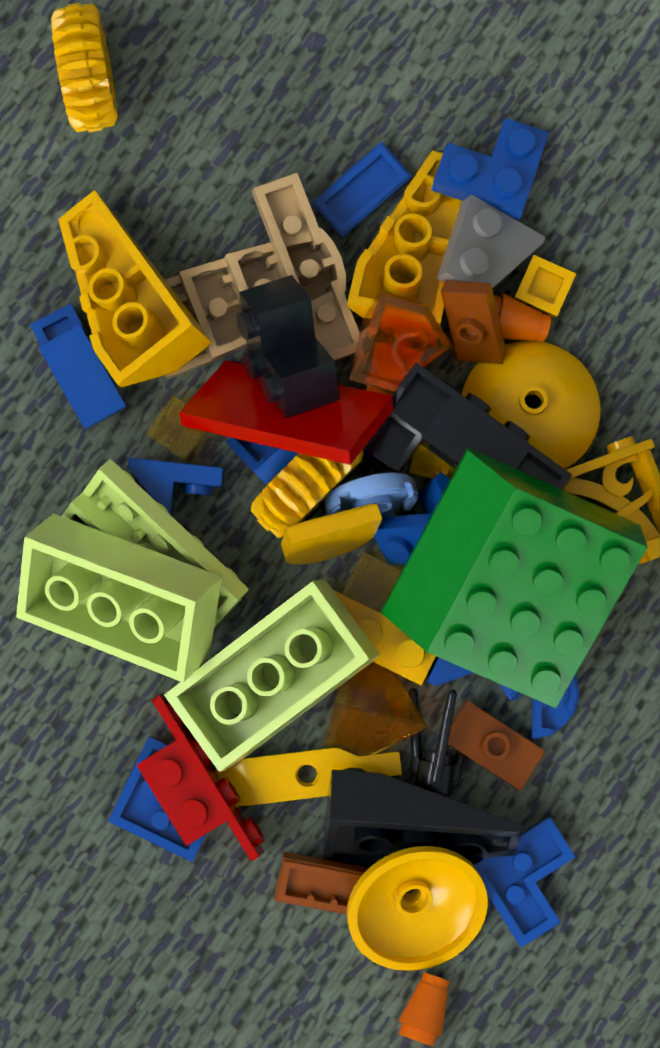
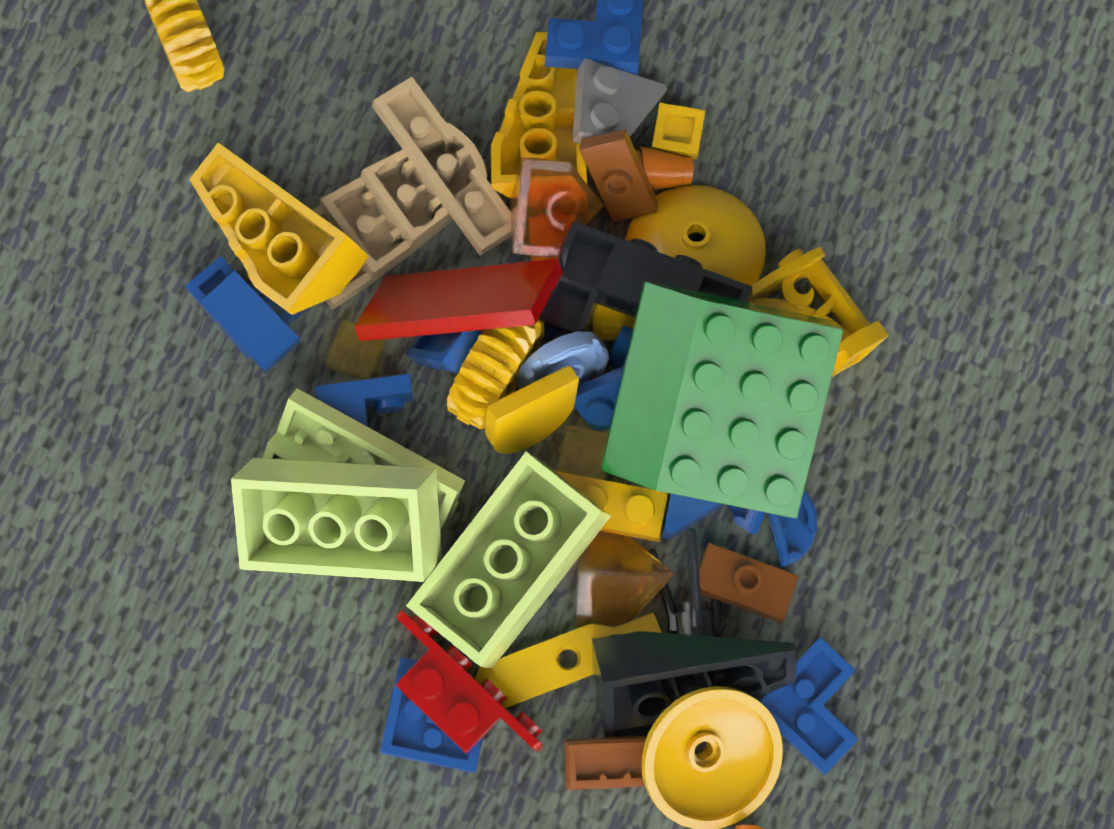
camera: 25 degrees left, 10 degrees down
(284, 348) = (440, 240): black brick -> none
(361, 190) = (478, 85): blue tile -> none

